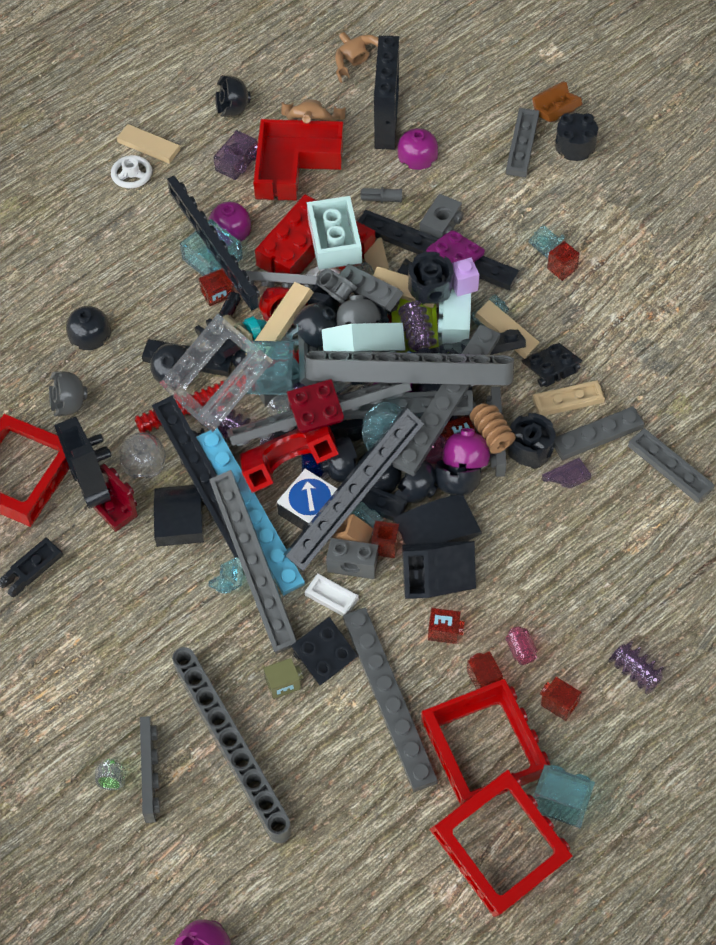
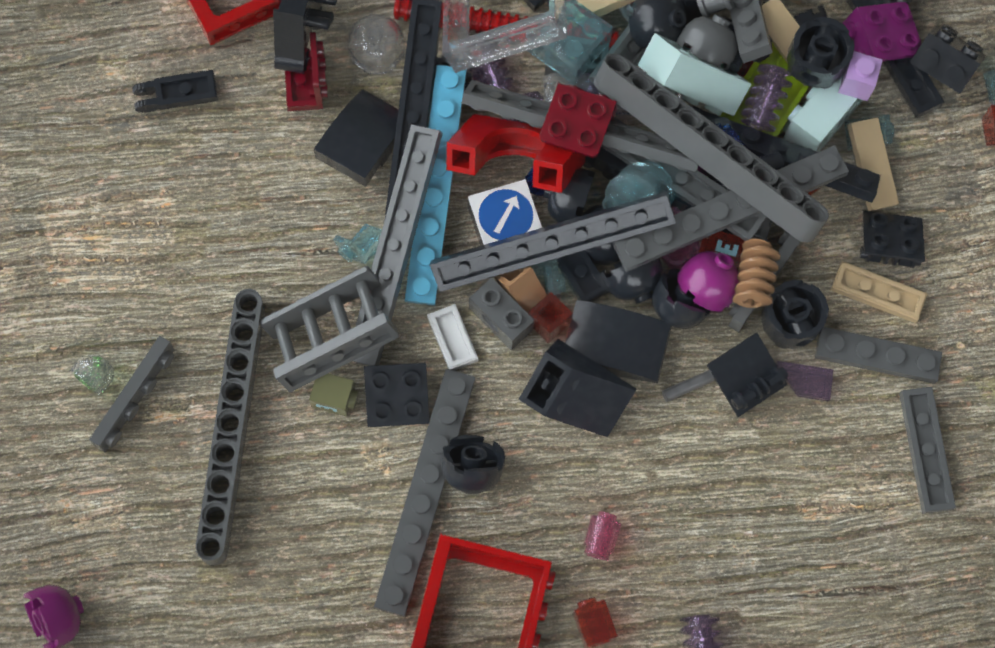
camera: 30 degrees right, 15 degrees up
(267, 646) = (340, 350): none -> dark grey fence
(408, 658) = (472, 464): none -> black cylinder
(445, 626) = (540, 457): clear red brick -> none
(483, 670) = (540, 536): clear red brick -> none
(502, 245) = (948, 57): none -> black bracket
(507, 513) = (688, 386): none -> flat silver bar
(532, 493) = (747, 374): none -> black hinge

